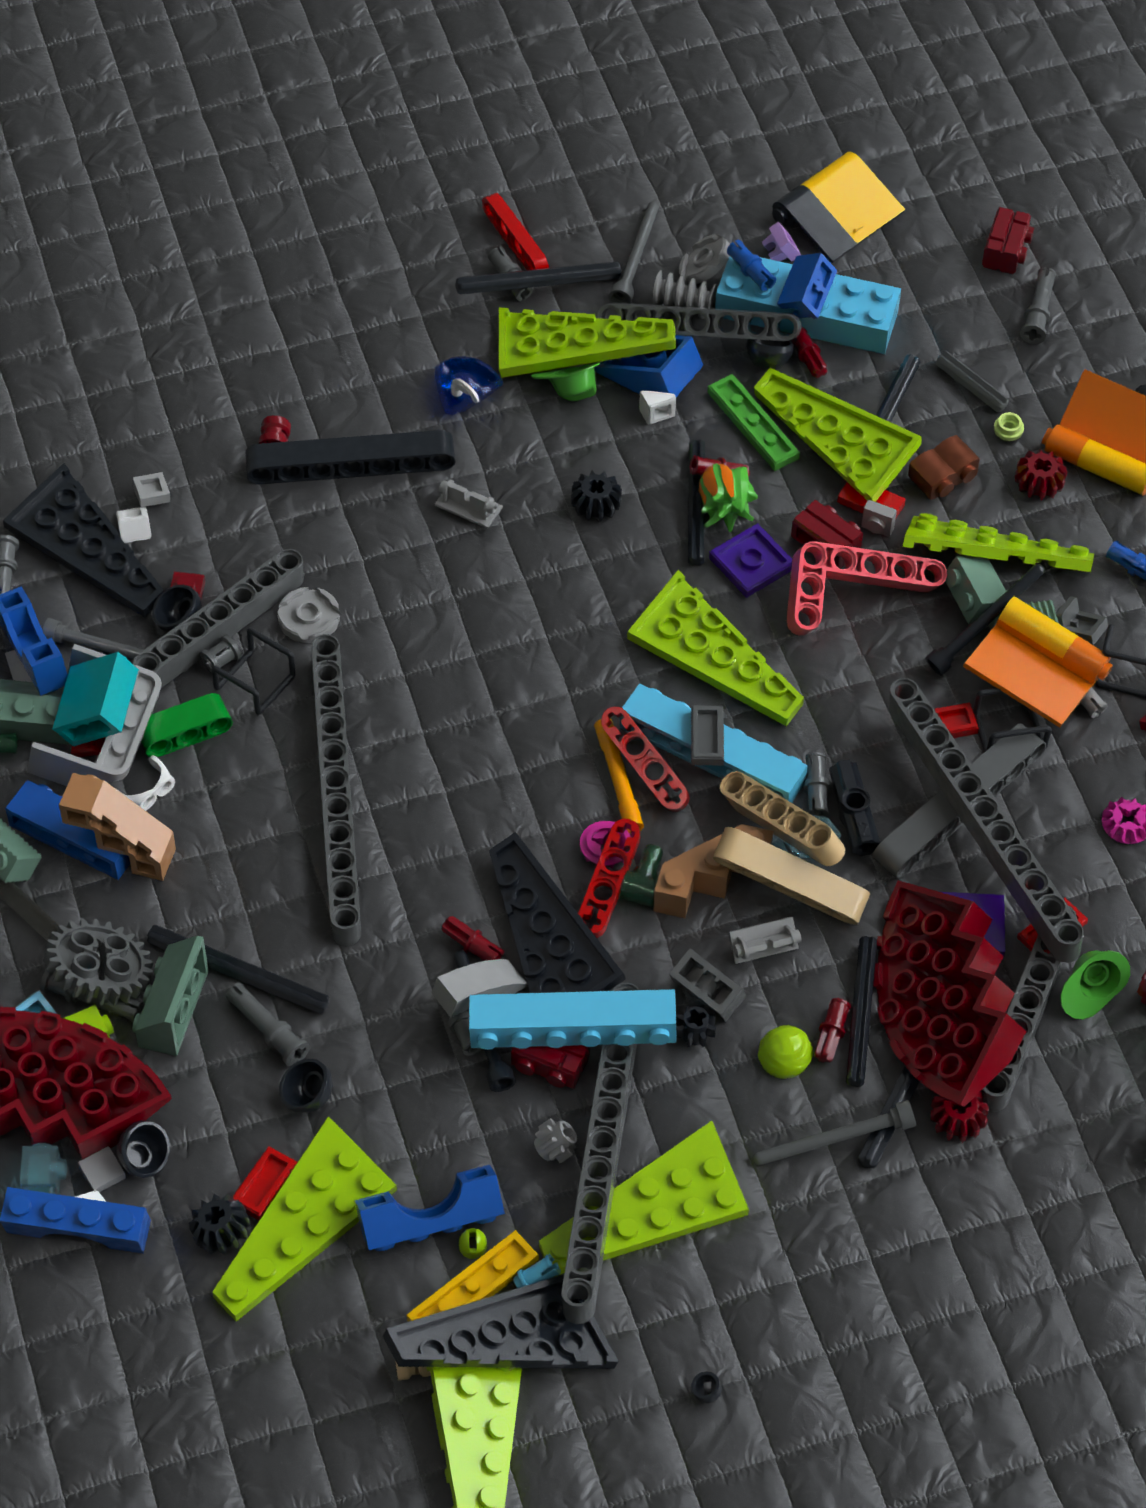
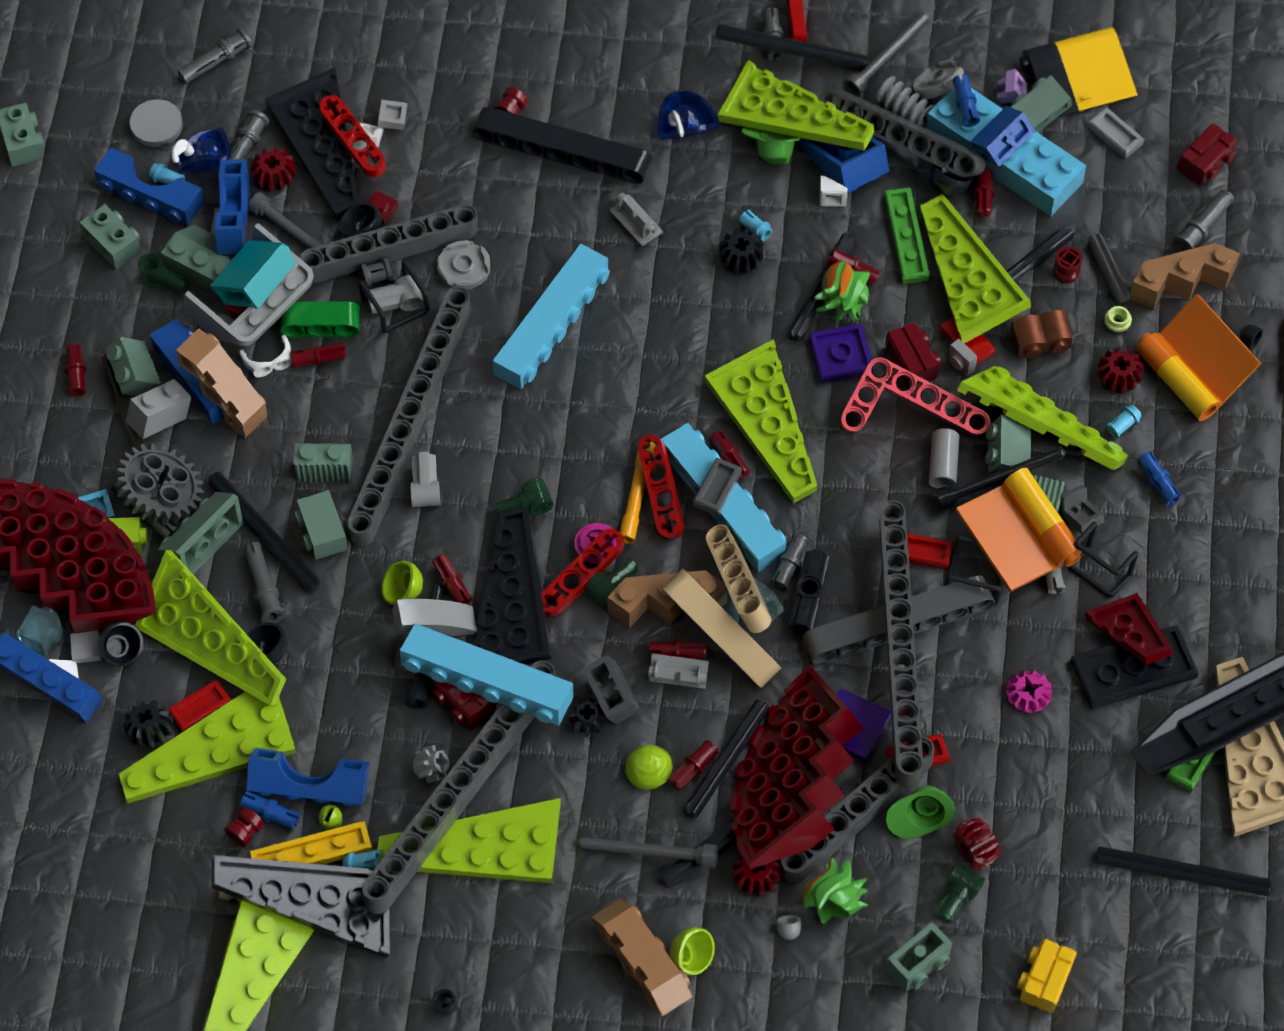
camera: 25 degrees right, 5 degrees up
(50, 589) = (273, 169): none -> dark red gear
(55, 882) = (158, 409): none -> light grey brick
(119, 527) = (356, 134): none -> red beam
(200, 763) = (318, 354): none -> dark red axle
(235, 1099) = (205, 633): none -> lime wing
(259, 667) = (401, 294): none -> light grey piece
(268, 870) = (323, 462): none -> sand green brick
(301, 936) = (322, 525): none -> sand green brick
(385, 1291) = (244, 827): none -> dark red wheel
(391, 855) = (425, 487): none -> light grey piece
(403, 1262) = (270, 810): none -> blue pin
(421, 963) = (401, 582): none -> lime piece
(433, 631) = (551, 316): none -> medium azure brick
(510, 819) = (533, 495): none -> clear green pin
(587, 463) = (755, 225): none -> medium azure pin
(679, 692) = (728, 451): none -> dark red axle
(761, 914) = (691, 650): none -> dark red axle
(825, 237) = (1043, 102): none -> sand green brick
(892, 1248) = (642, 956): none -> medium nougat brick
(904, 252) = (1115, 133): none -> light grey tile
(916, 623) = (944, 458): none -> light grey pin
(932, 392) = (1067, 265): none -> dark red wheel
(939, 1221) = (692, 950): none -> lime piece
(1023, 1155) = (789, 926): none -> light grey hinge
(1048, 359) = (1182, 272): none -> medium nougat brick
(1054, 1099) = (835, 892): none -> bright green hair
(1073, 516) = (1129, 416): none -> medium azure pin

